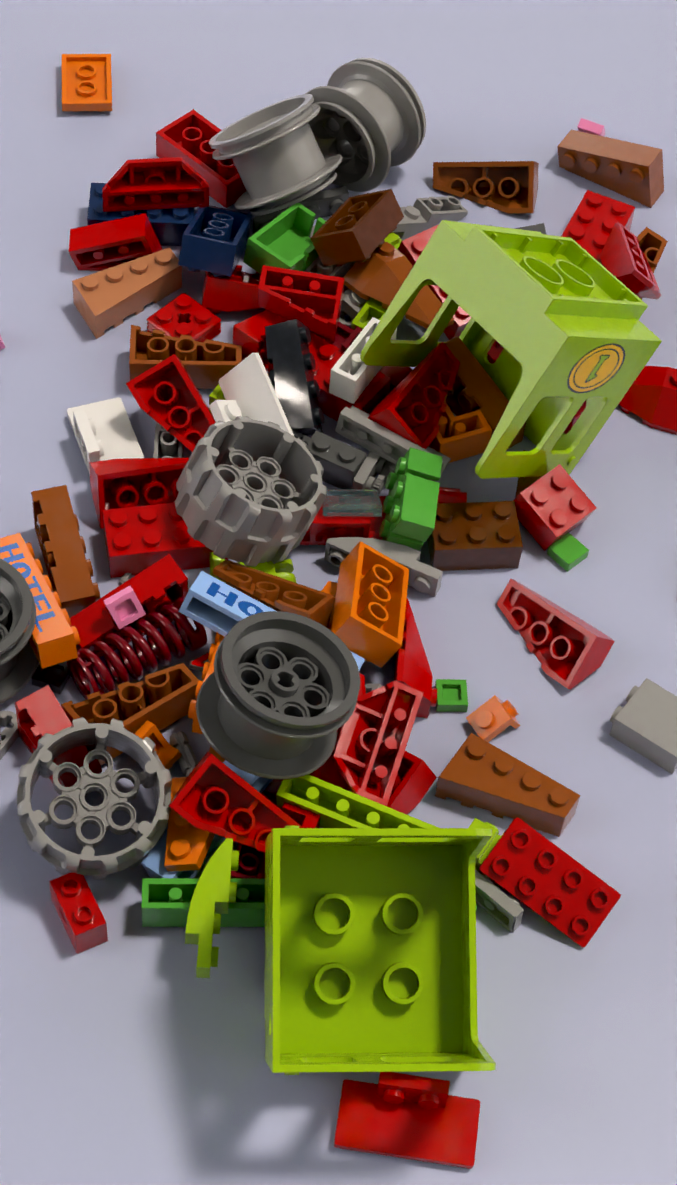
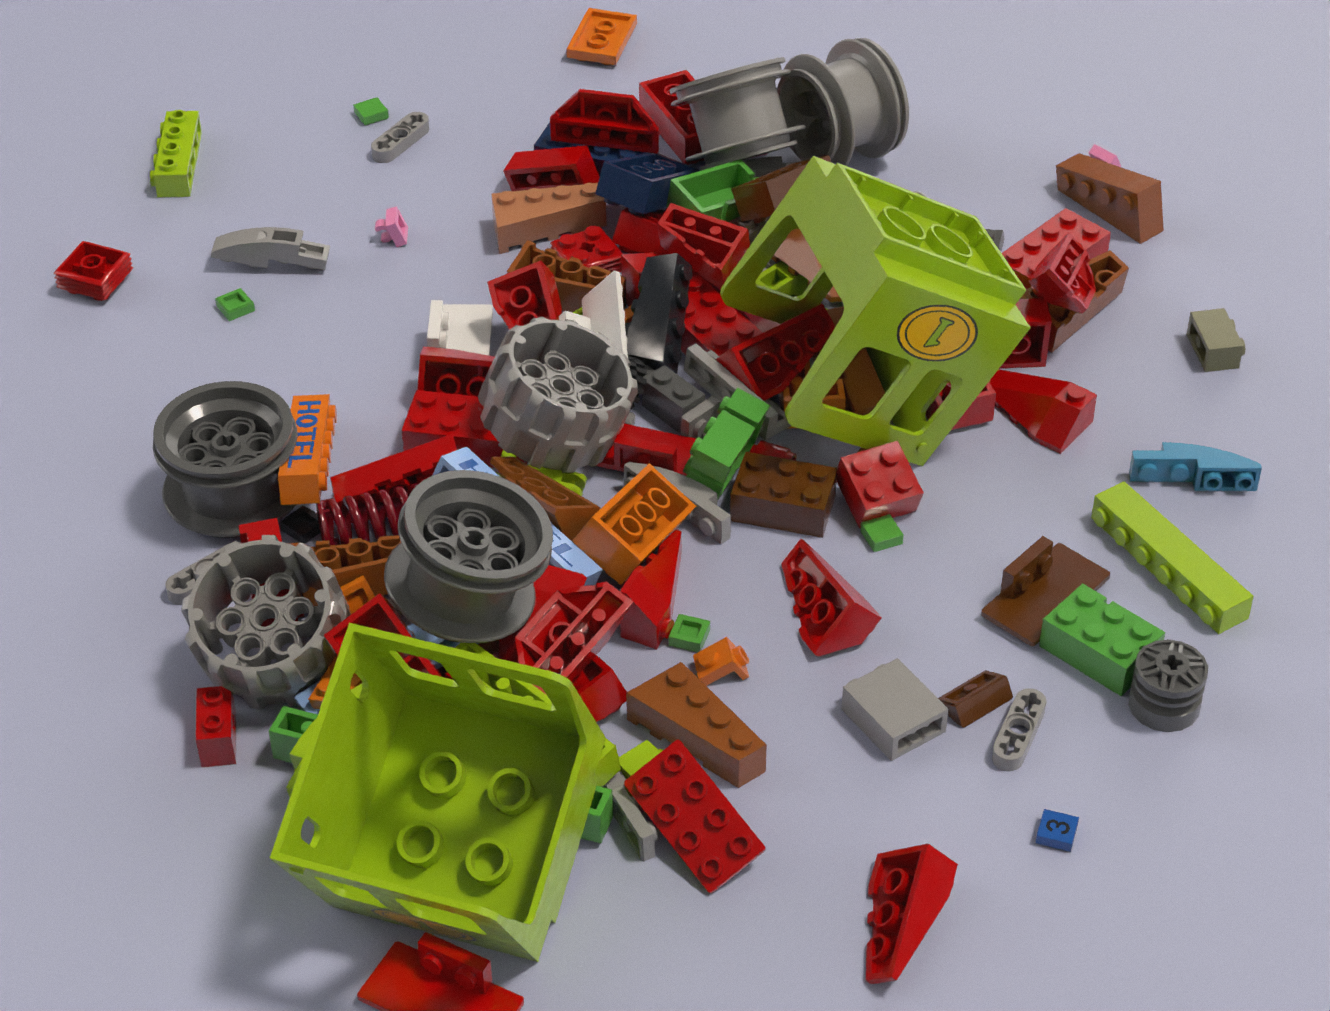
camera: 25 degrees right, 10 degrees down
(63, 549) = (364, 413): dark orange wedge -> none
(124, 607) = (385, 469): bright pink tile -> none
(350, 373) = (716, 321): white brick -> none
(352, 503) = (664, 434): clear light blue tile -> none
(496, 184) = (982, 191): dark orange wedge -> none

